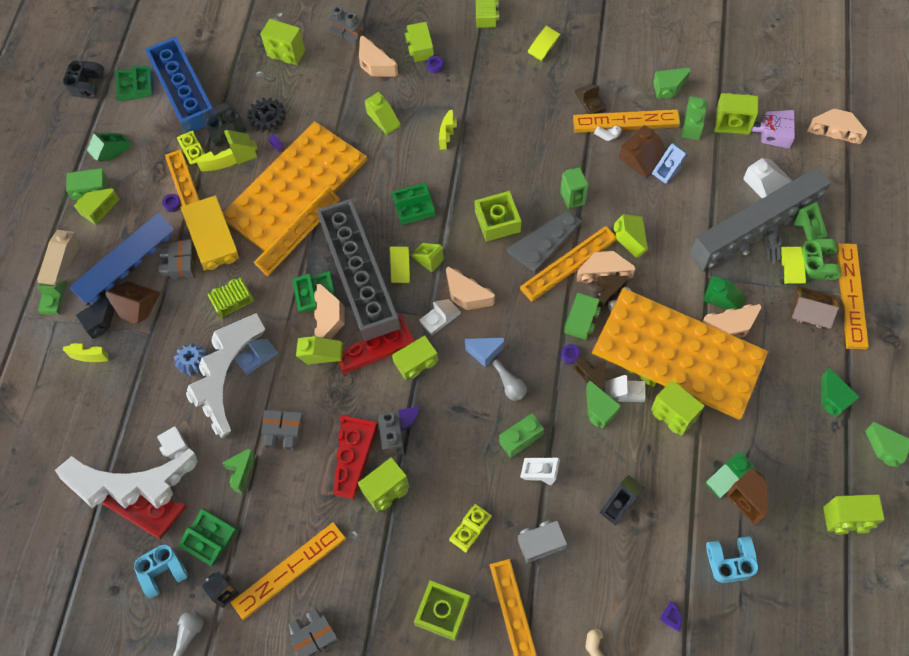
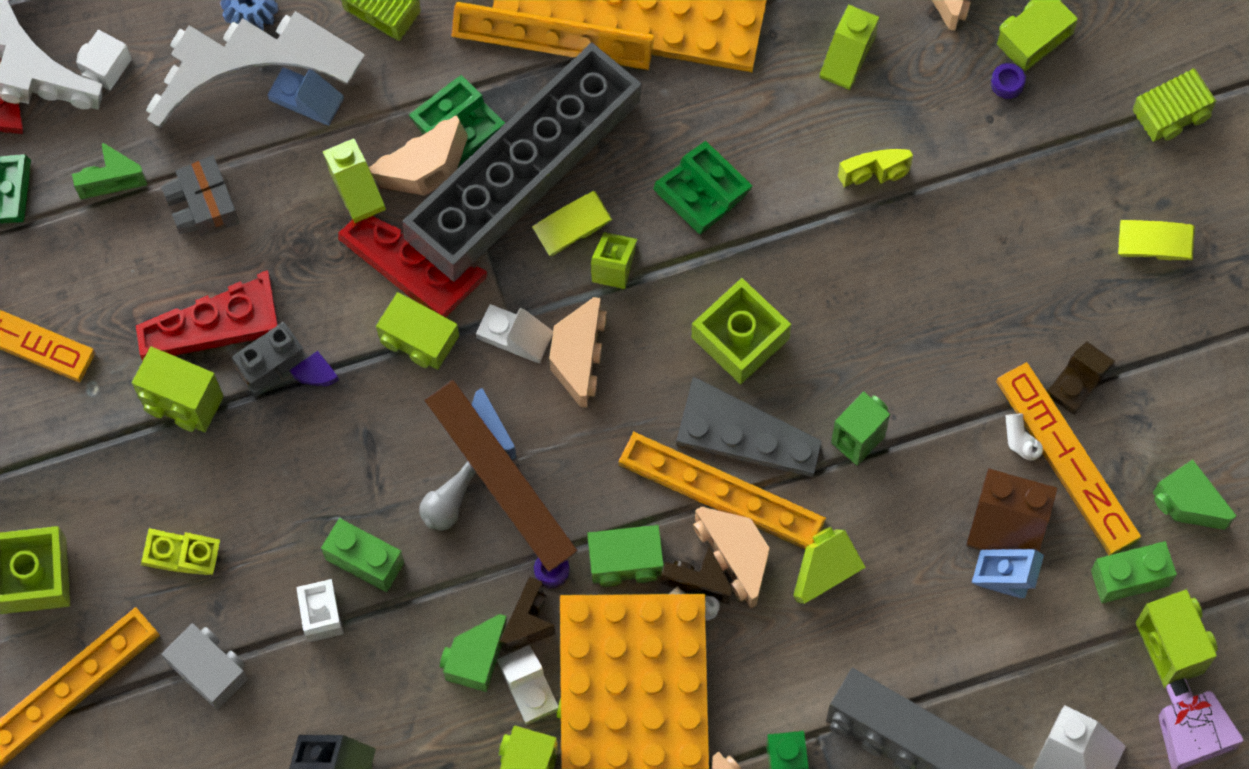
camera: 60 degrees right, 5 degrees up
(515, 350) = (501, 476): none -> reddish brown tile

